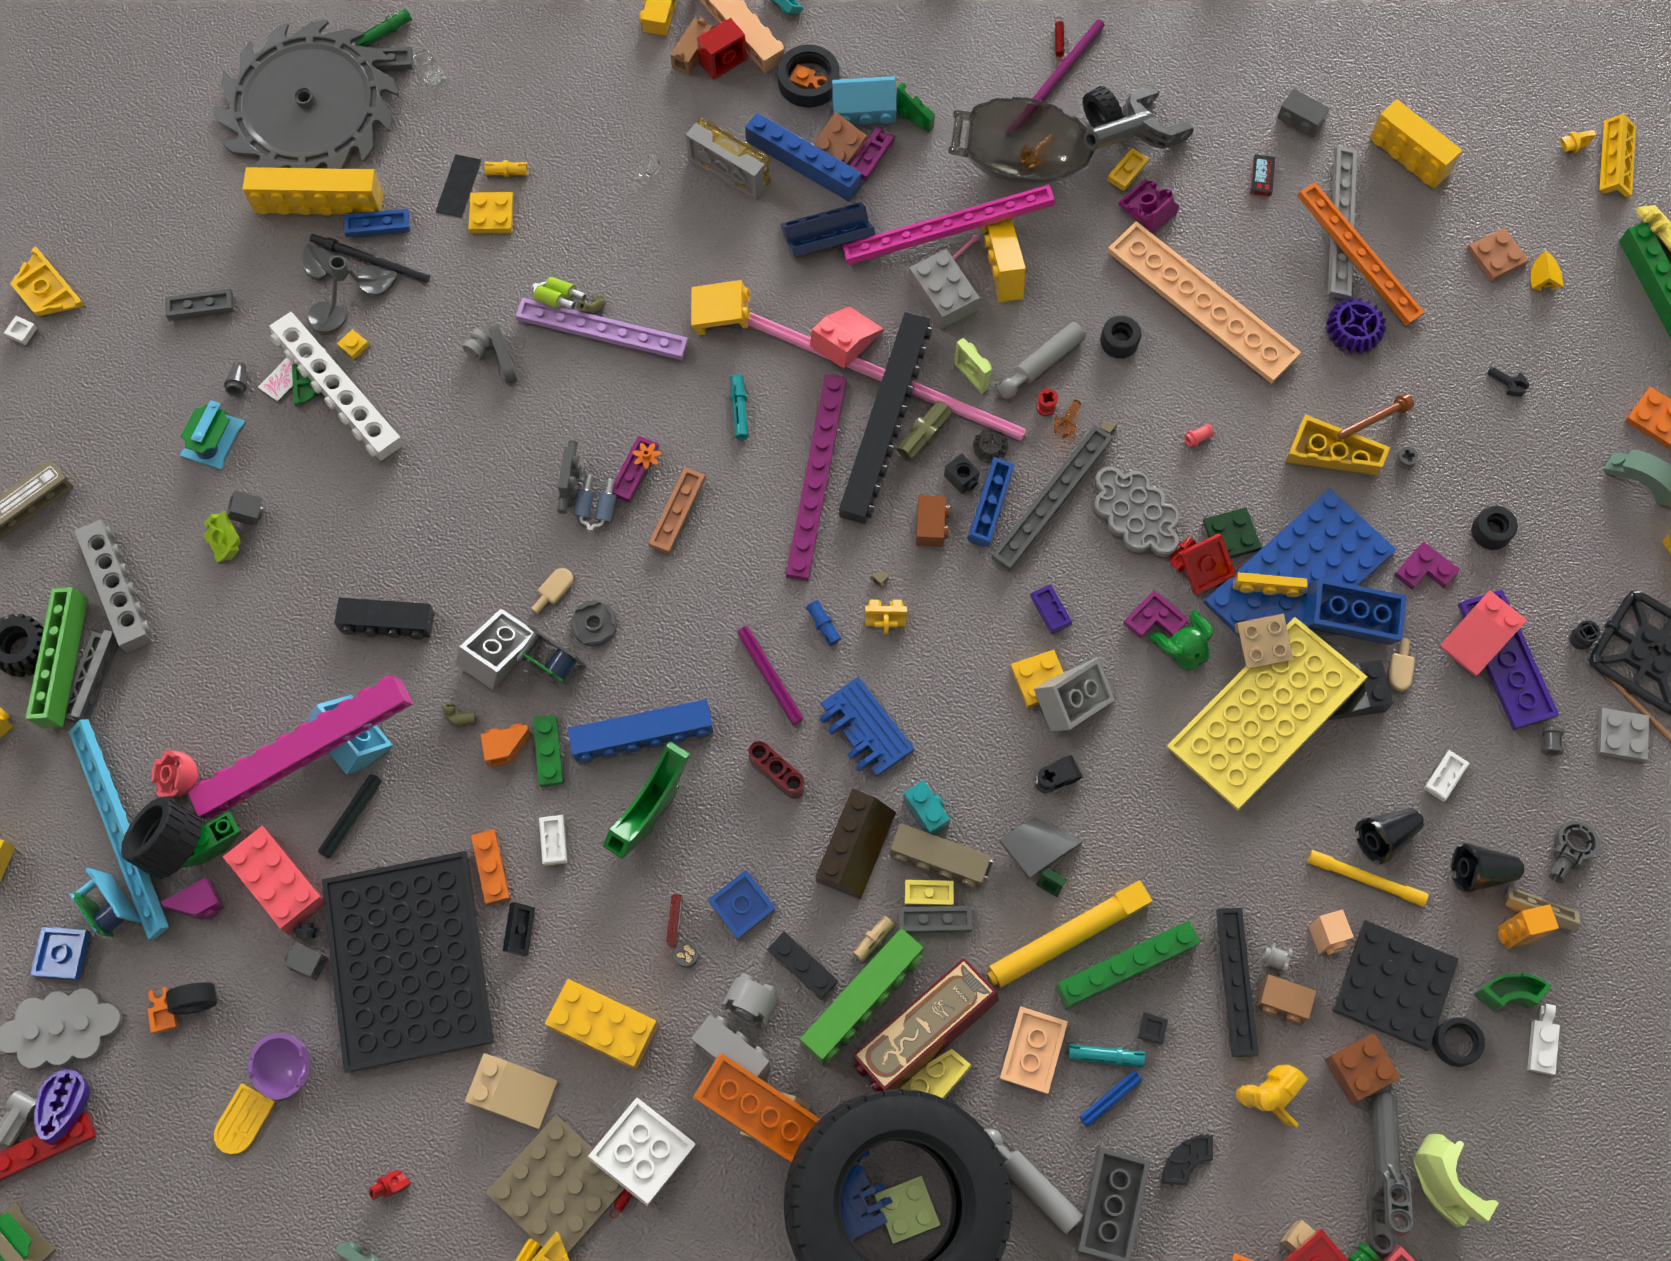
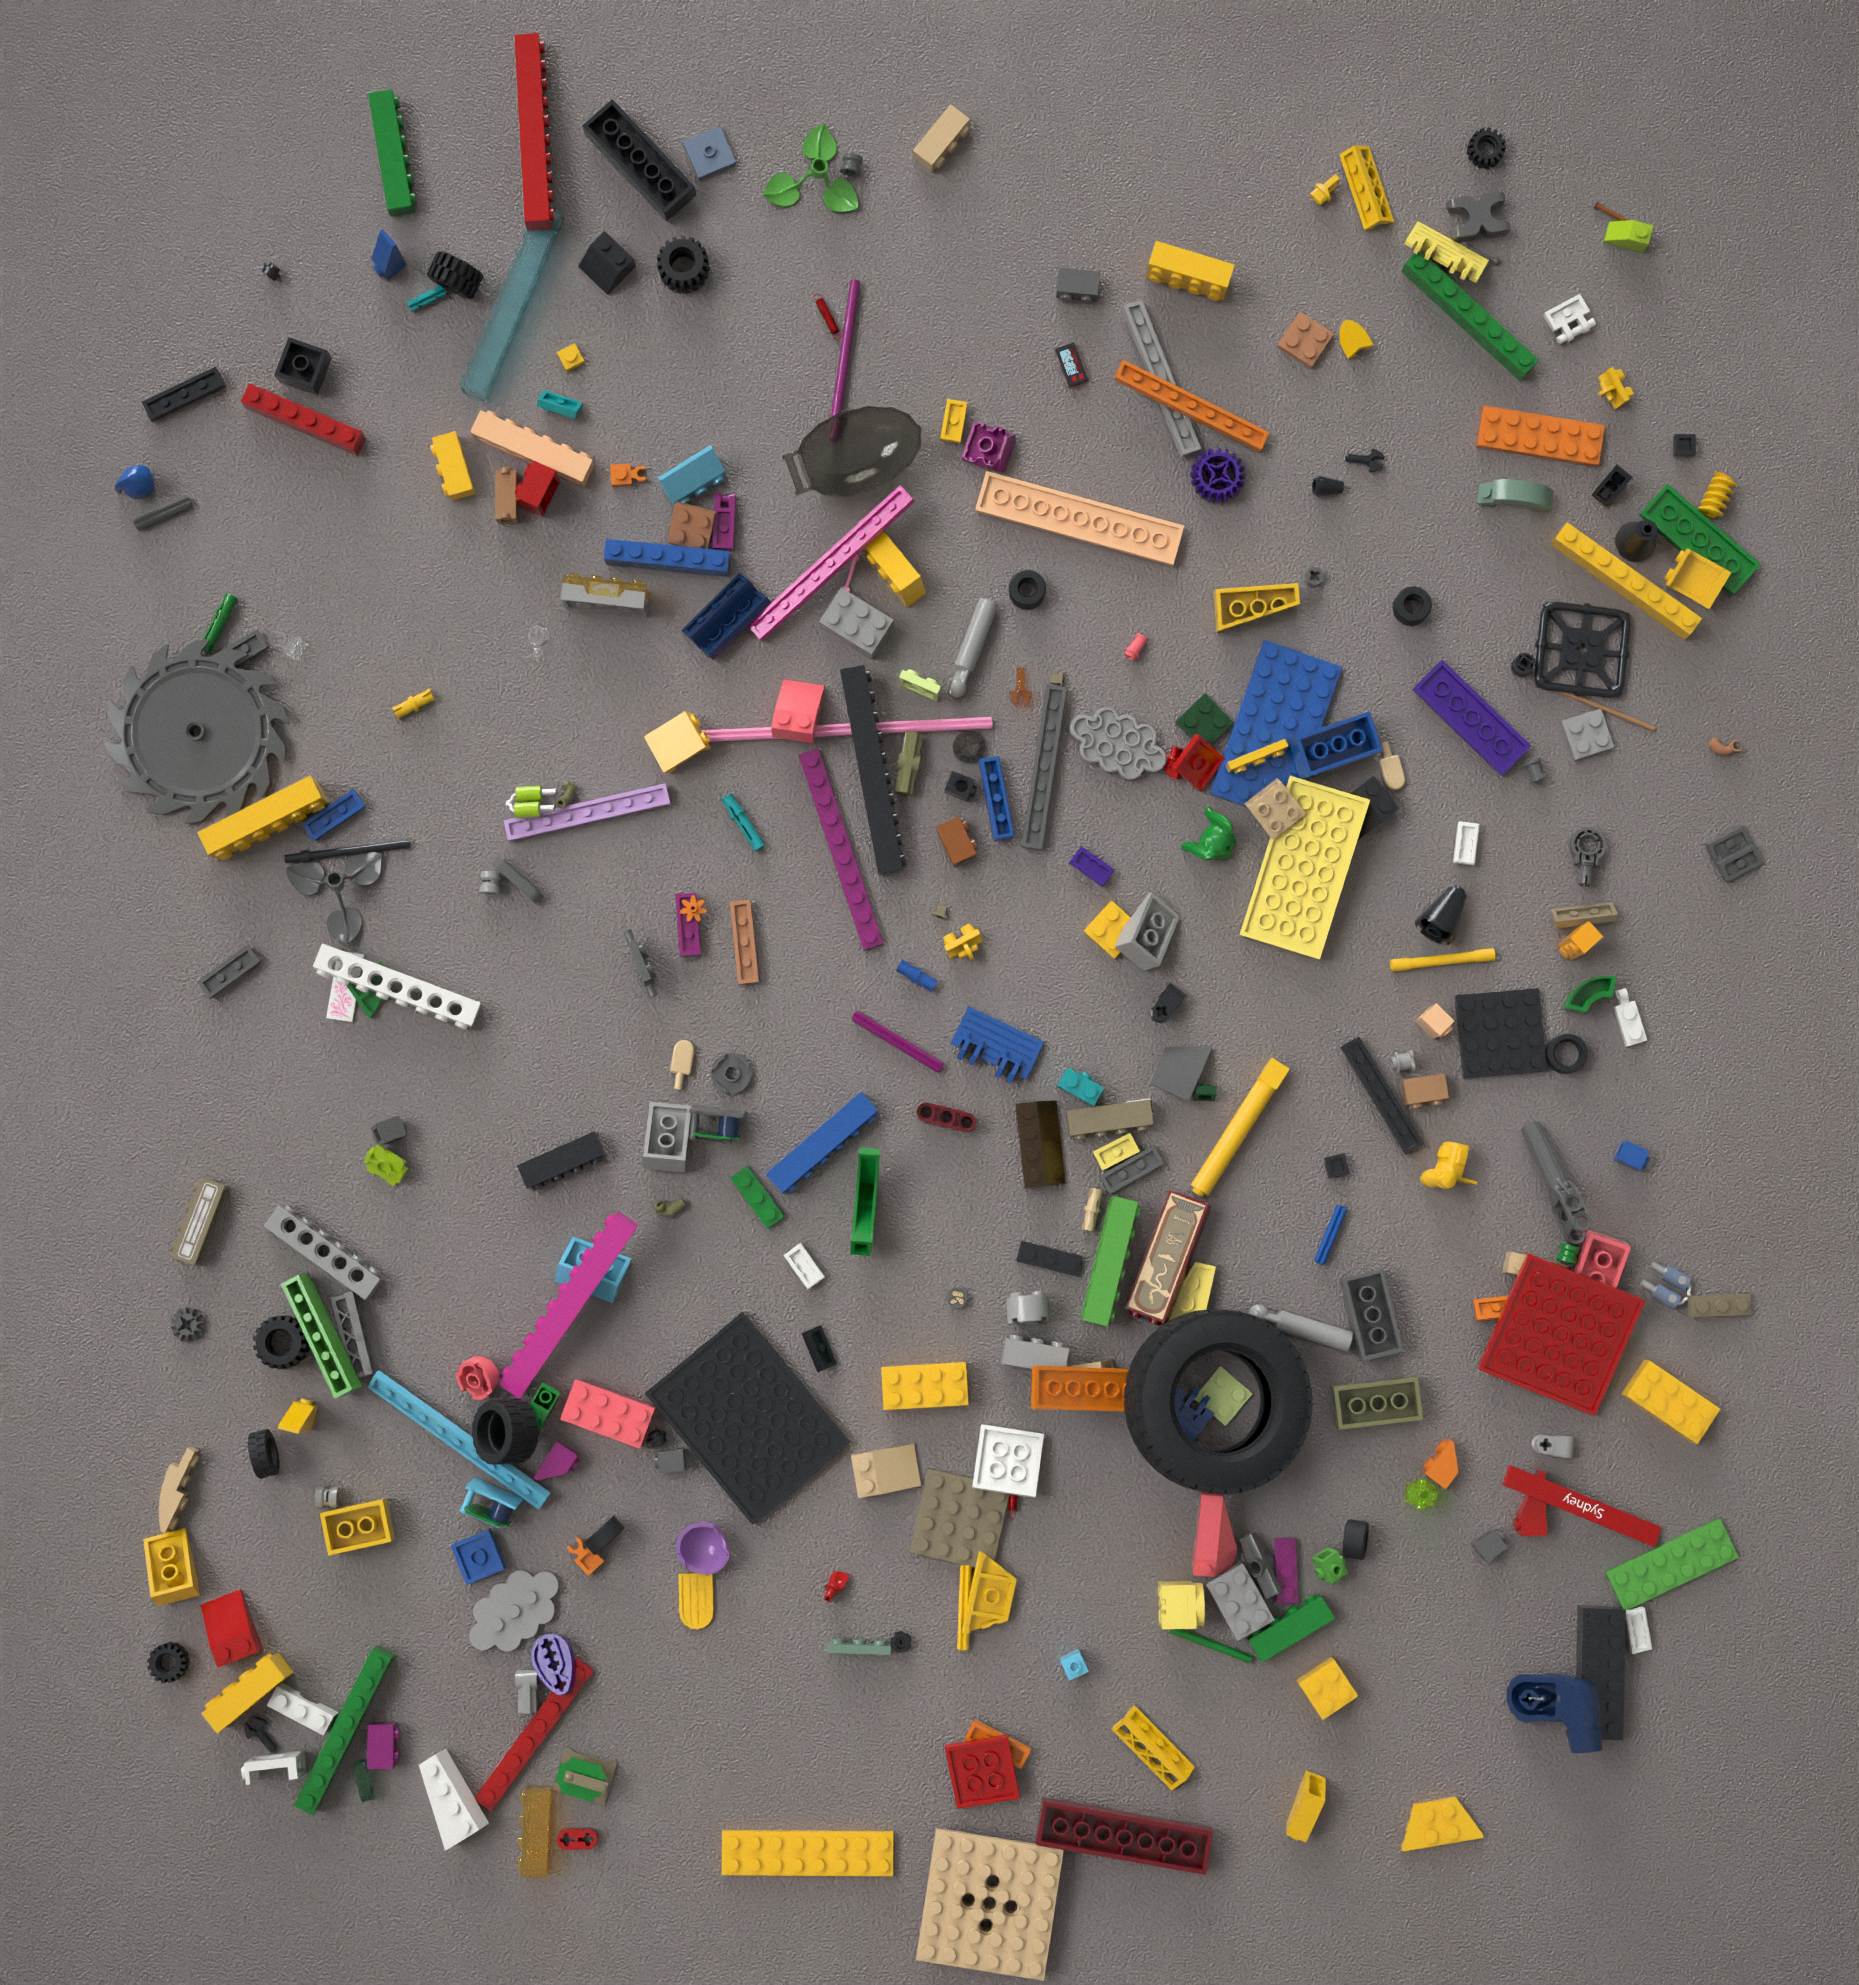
camera: 30 degrees left, 15 degrees up
(20, 330) = (91, 1076): white plate -> none
(43, 287) = (84, 1027): yellow wing -> none
(210, 435) = (317, 1082): piece -> none
(236, 380) = (306, 1022): dark grey cone -> none
(349, 816) = (633, 1332): black axle -> none
(352, 344) = (383, 937): yellow plate -> none
(458, 185) = (380, 740): black sticker -> none
(490, 867) = (767, 1312): orange plate -> none
(491, 212) = (425, 752): yellow plate -> none
(504, 745) = (721, 1213): orange slope -> none
(605, 503) = (683, 970): sand blue piece -> none
(674, 920) = (934, 1278): clear red tile -> none
(741, 904) = (977, 1237): blue plate -> none
(807, 54) = (621, 448): black tyre -> none
(913, 109) = (739, 460): green wing -> none
(1033, 1050) = (1256, 1230): light nougat plate -> none
(1035, 151) = (866, 448): clear orange bar -> none
(1046, 402) = (996, 676): red bush -> none
(1101, 106) = (905, 378): black tyre -> none
(1106, 1055) = (1312, 1204): teal pin -> none
(1127, 965) = (1294, 1127): green brick -> none
(1138, 123) = (942, 377): dark grey piece -> none
(1155, 610) = (1177, 823): magenta plate -> none
(1185, 1158) = (1406, 1248): black tile -> none
(1362, 1068) = (1504, 1113): dark orange brick -> none
(1401, 404) = (1288, 530): dark orange piece -> none
(1429, 562) = (1371, 664): magenta plate -> none
(1438, 1179) = (1590, 1163): yellowish green piece -> none
(1459, 384) = (1326, 486): none -> black cone
(1482, 633) = (1443, 710): coral slope -> none
(1483, 867) = (1527, 906): black cone -> none
(1485, 1186) = (1632, 1156): none -> blue brick

